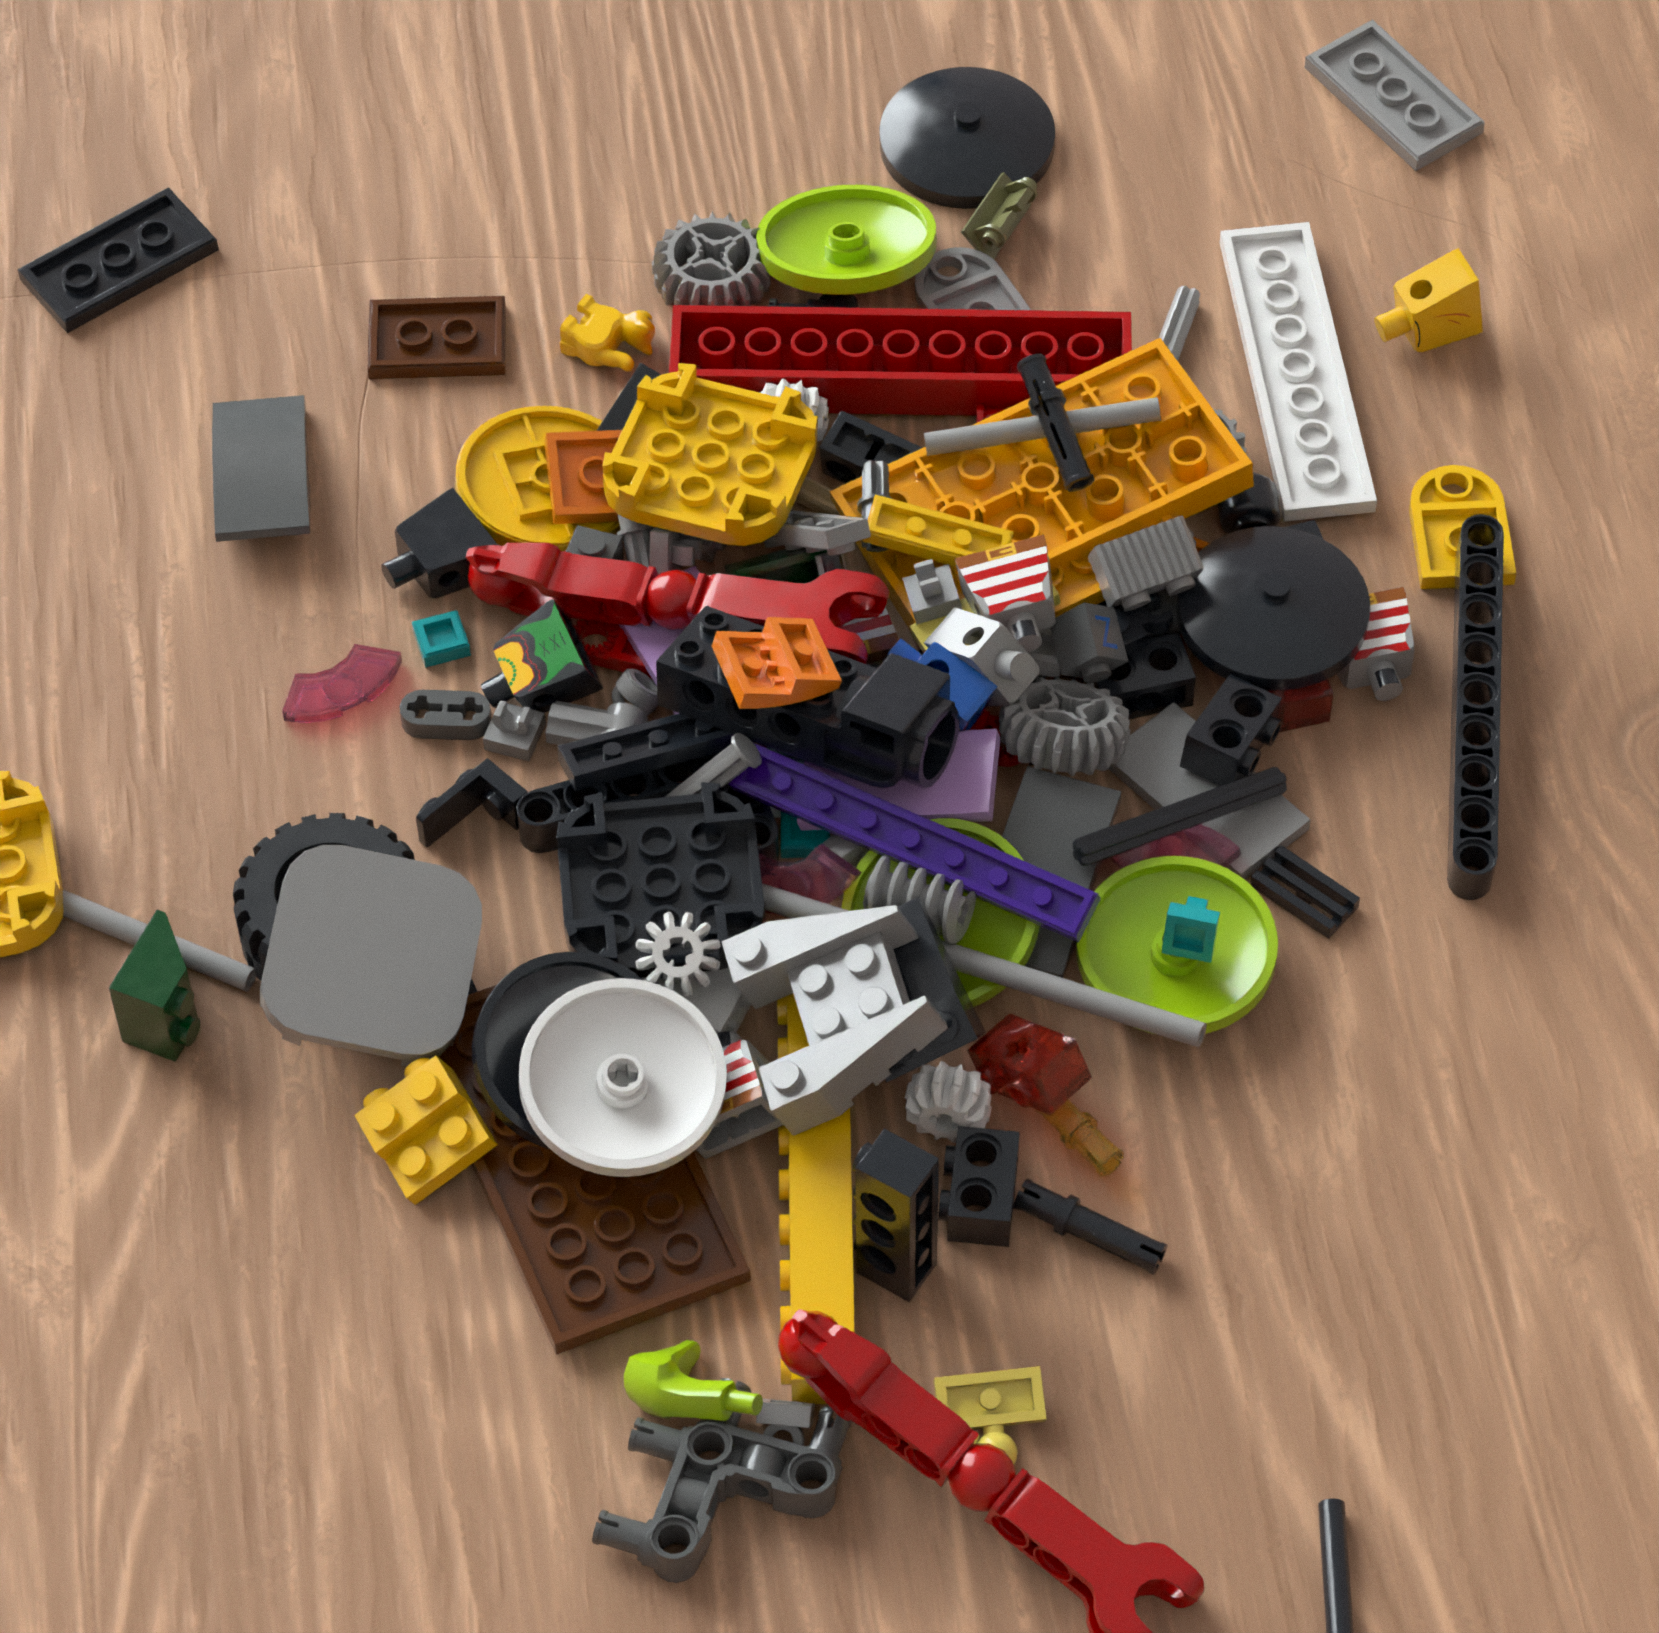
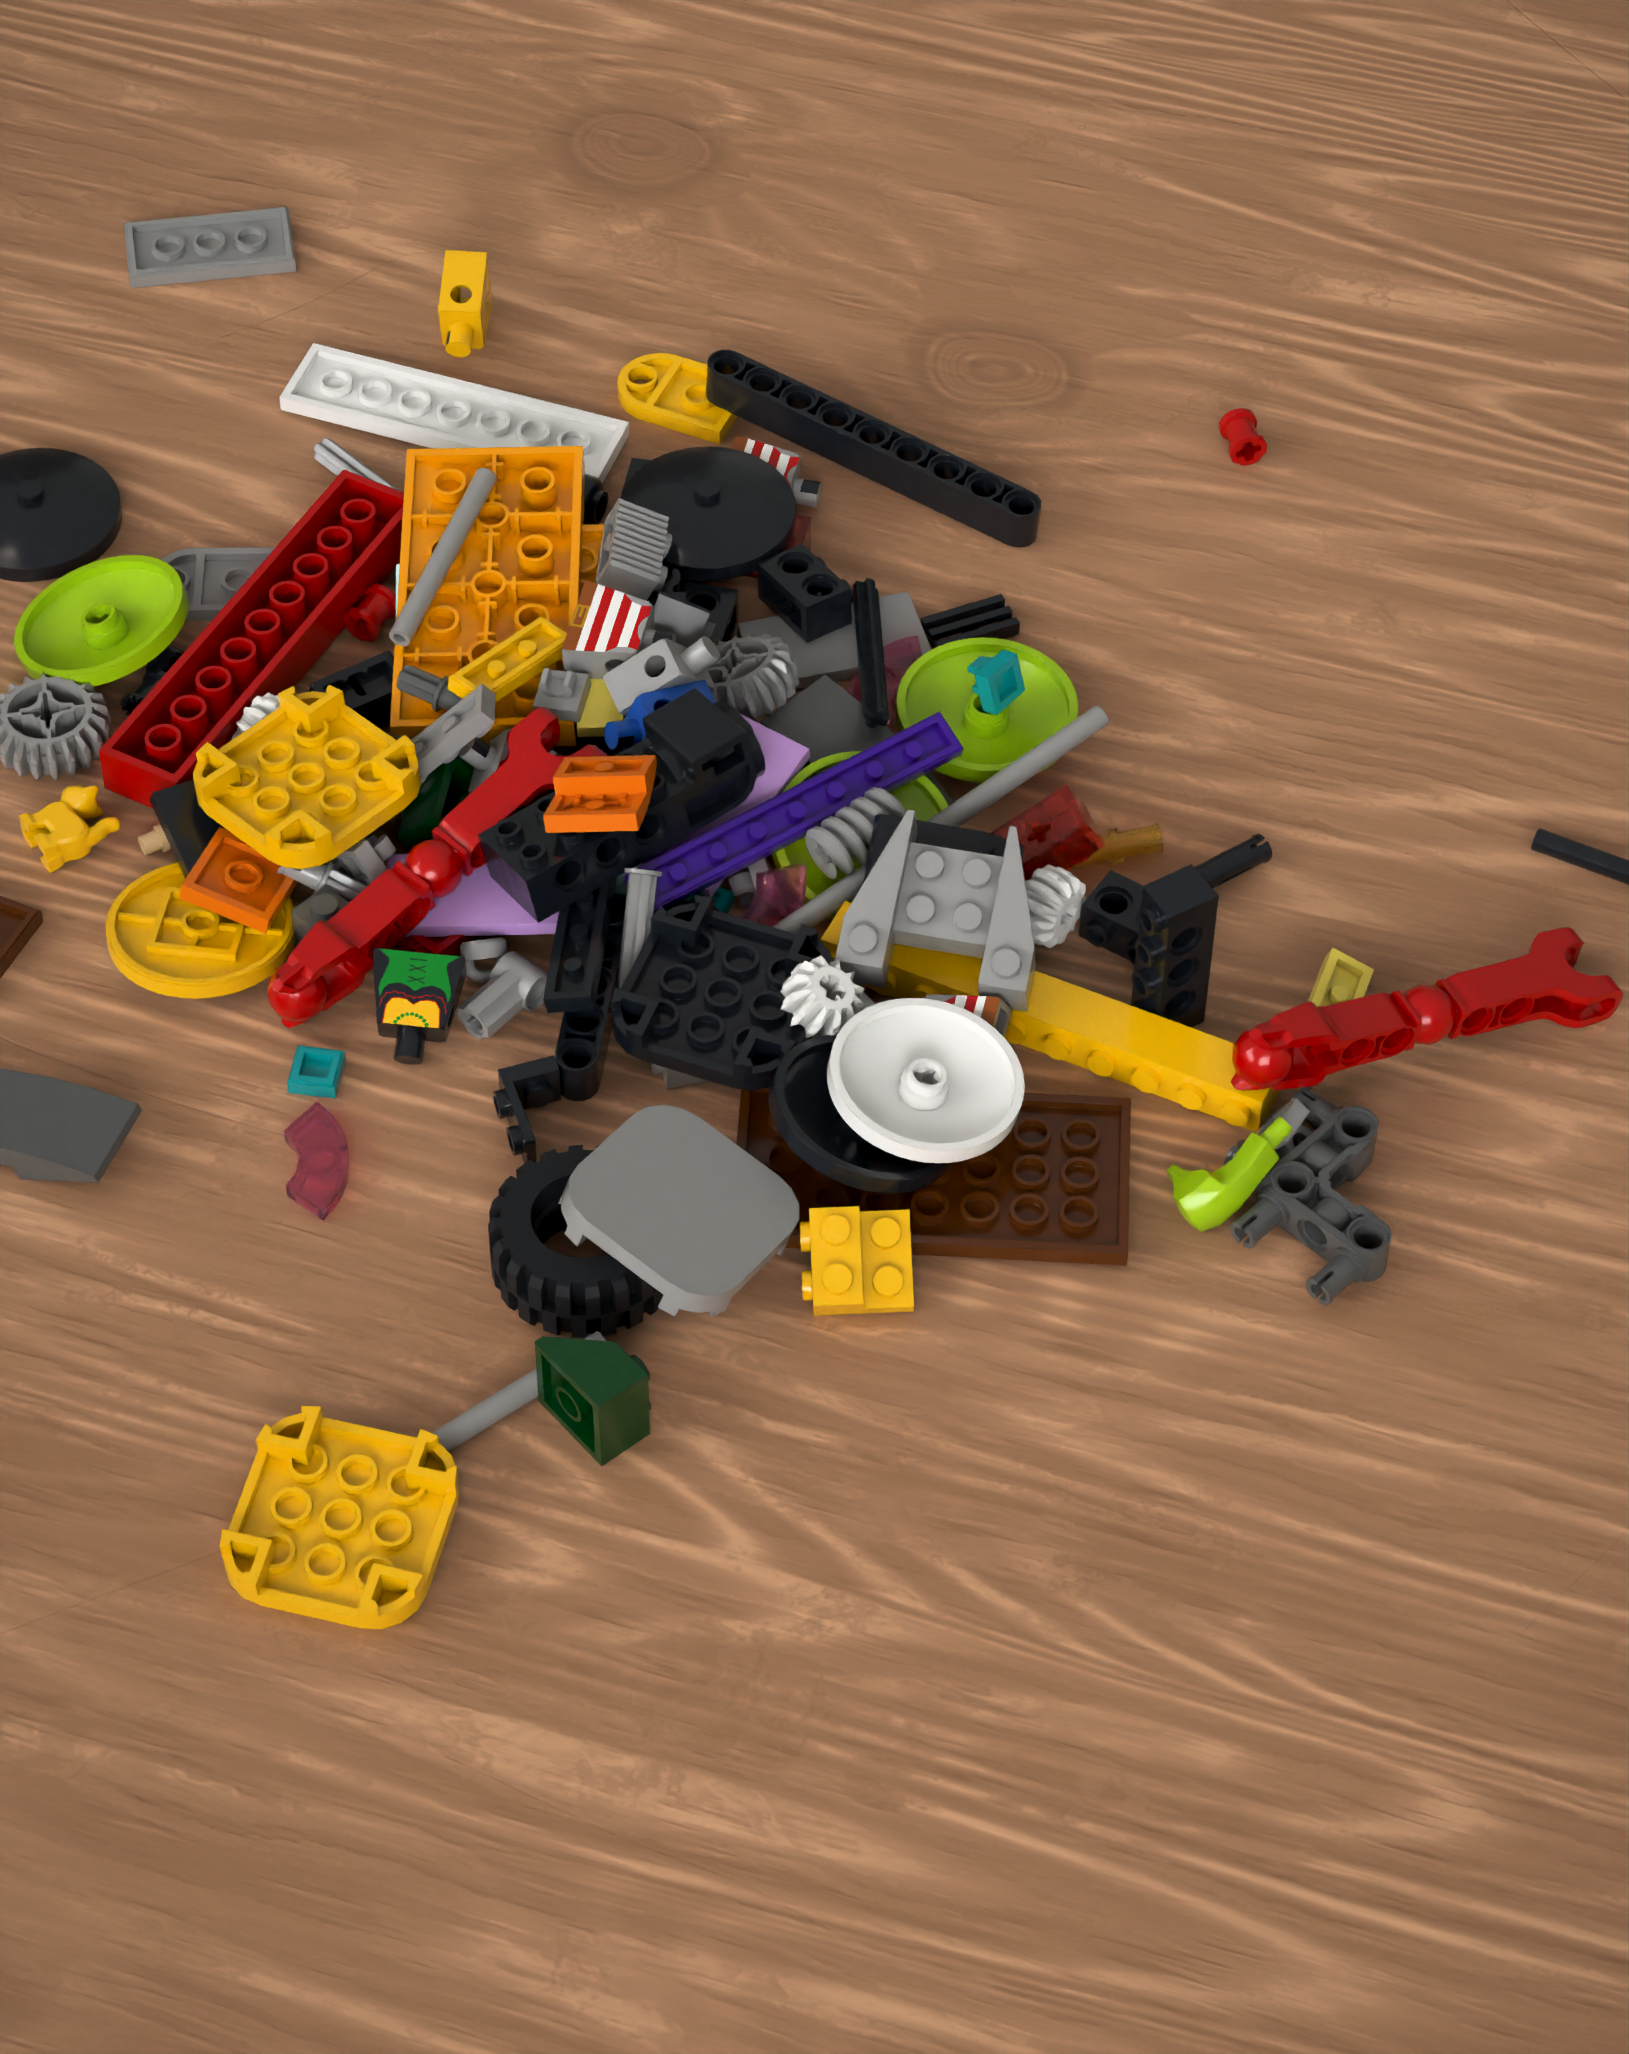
camera: 65 degrees left, 5 degrees down
(435, 546) = (225, 1025): black torso -> none
(445, 714) = (399, 1093): dark grey beam -> none
(514, 731) = (458, 1057): light grey tile -> none
(999, 214) = (157, 530): olive hinge -> none
(1048, 404) = (459, 537): black pin -> none

